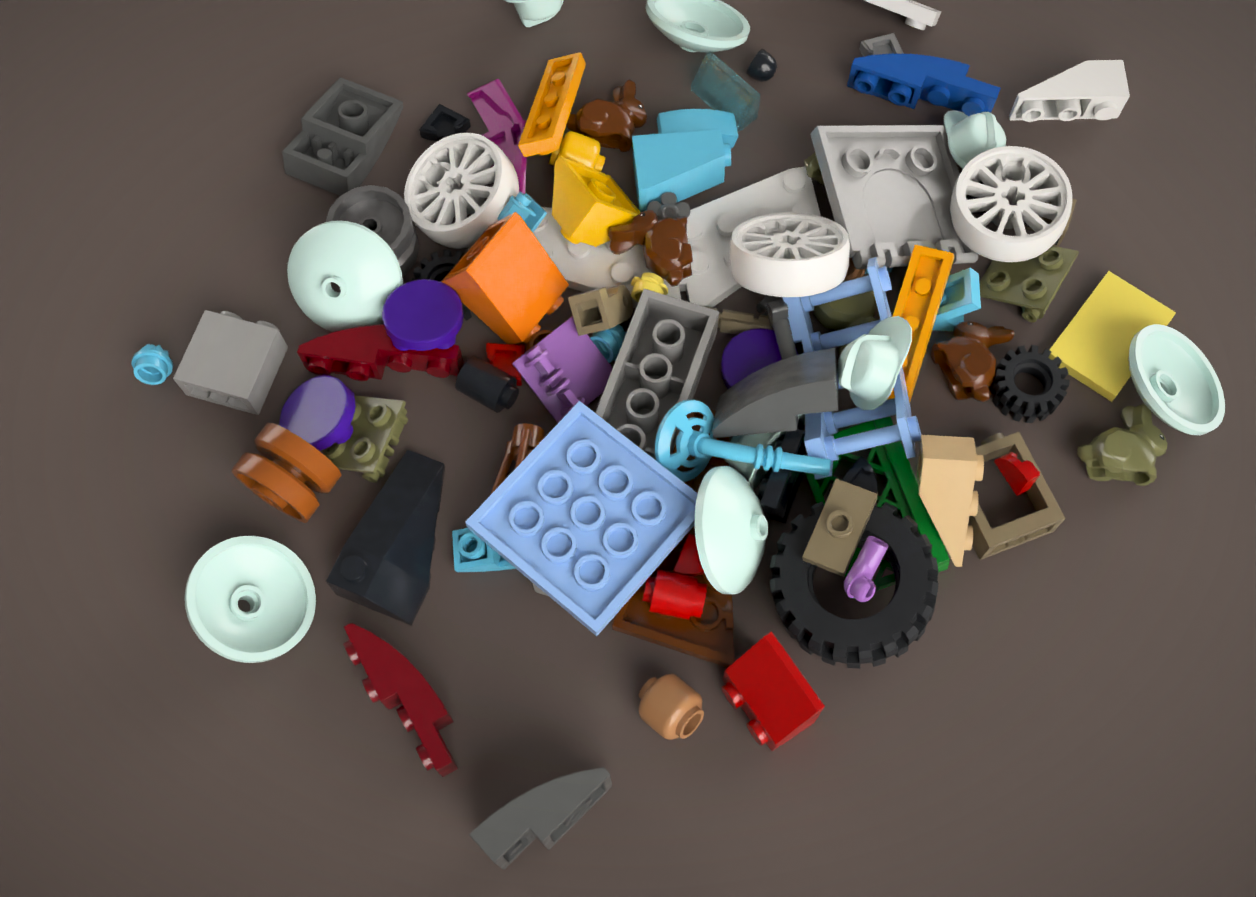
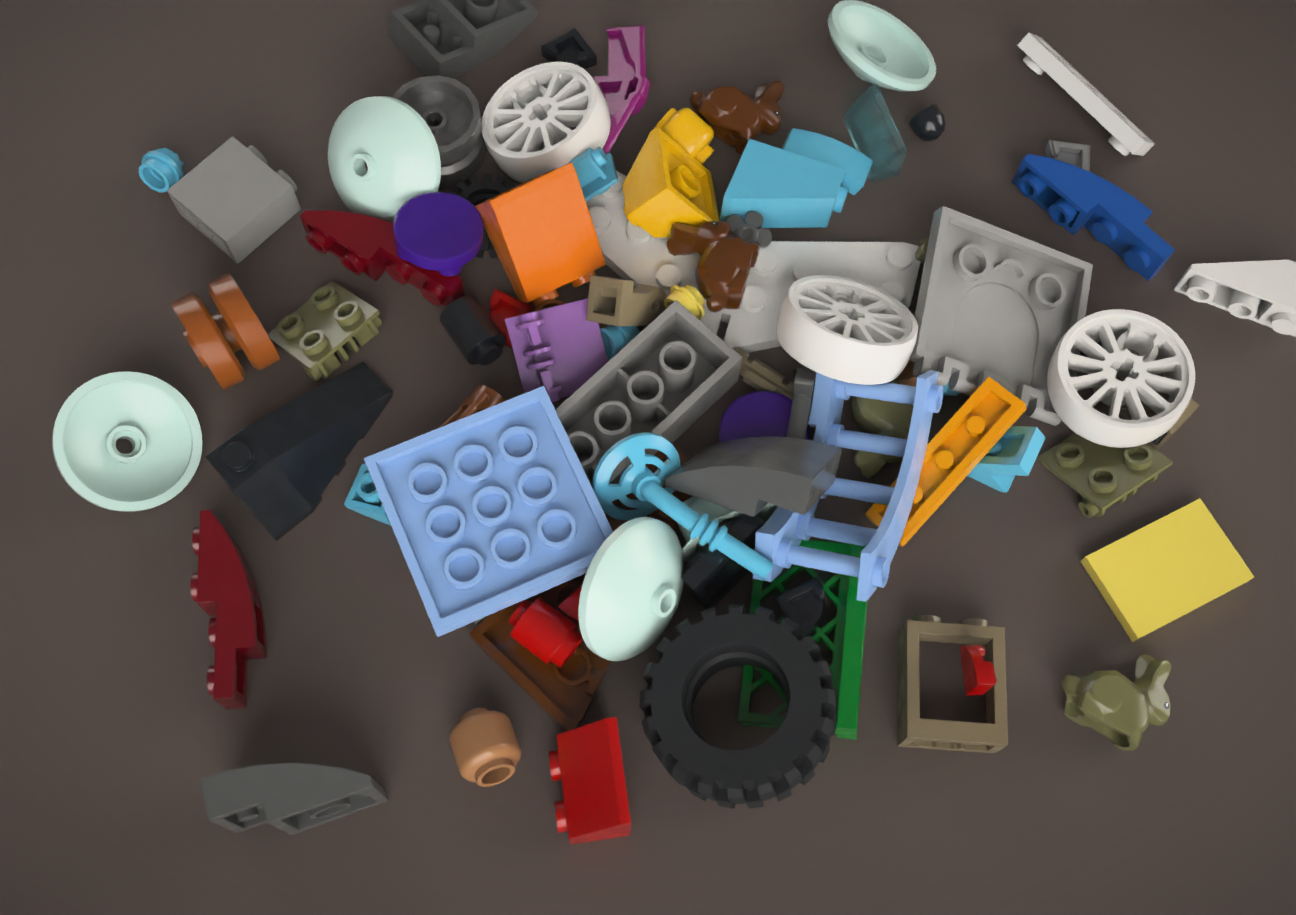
camera: 20 degrees right, 0 degrees up
(320, 411) = (291, 288): tile -> none
(552, 105) = (683, 74): light orange plate -> none
(840, 527) = (744, 640): dark tan plate -> none
(858, 581) = (734, 705): medium lavender arm -> none
(873, 362) = (873, 480): light aqua piece -> none
(946, 485) = (882, 653): tan slope -> none
(967, 359) = (991, 526): reddish brown animal -> none
(972, 135) = (1117, 286): light aqua piece -> none
(1037, 365) = (1065, 563): black tyre -> none
(1176, 380) = (1213, 651): light aqua dish -> none

